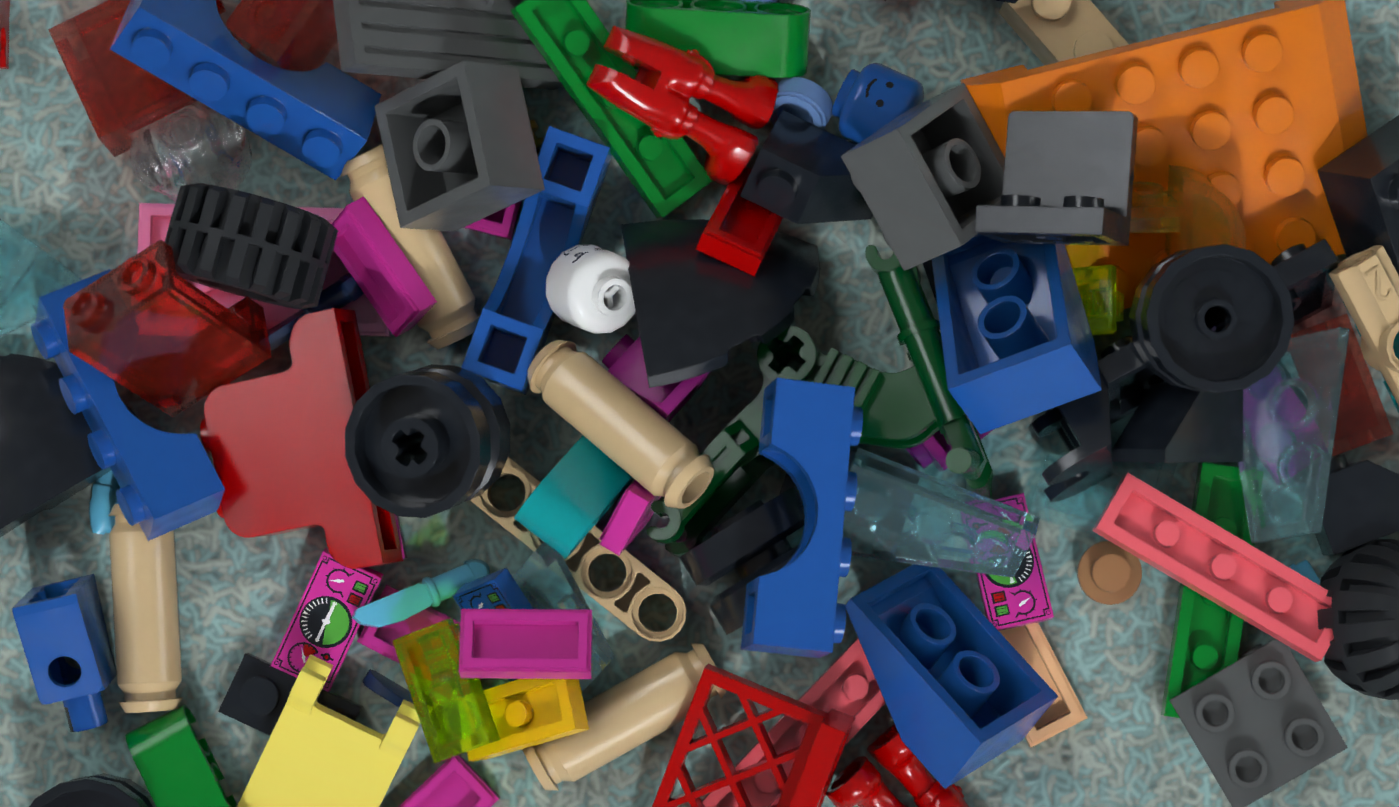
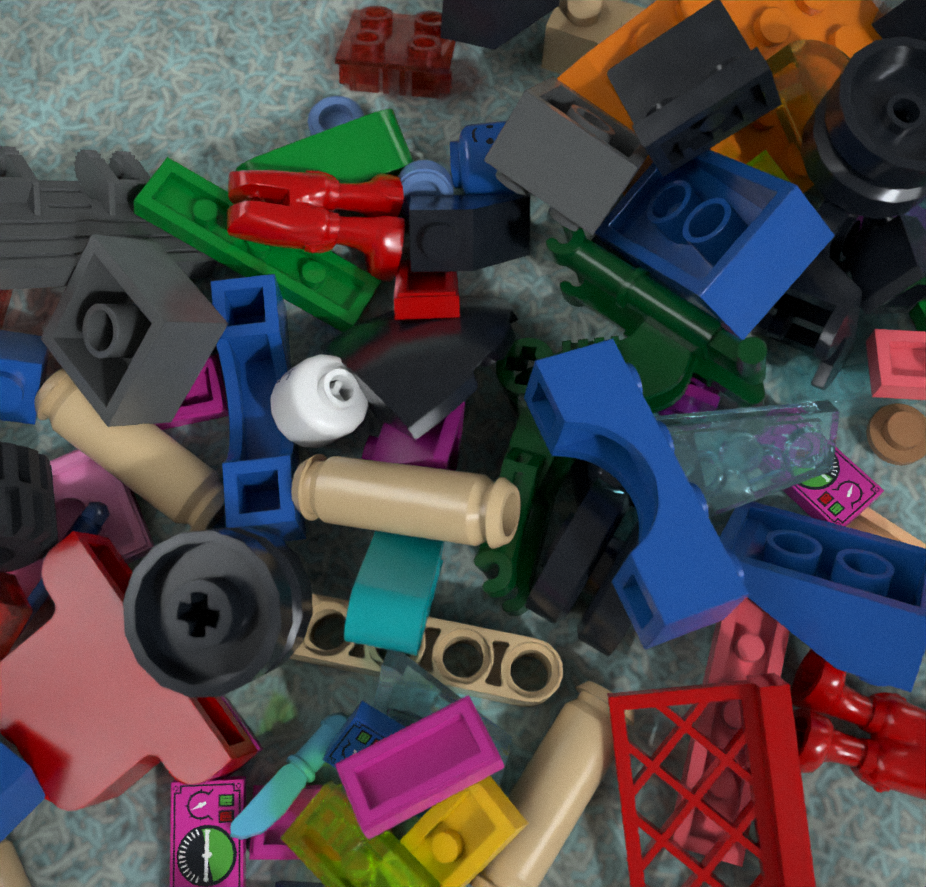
camera: 30 degrees left, 15 degrees down
(381, 268) = (110, 479): dark pink tile -> none
(628, 518) = (458, 583): dark pink tile -> none

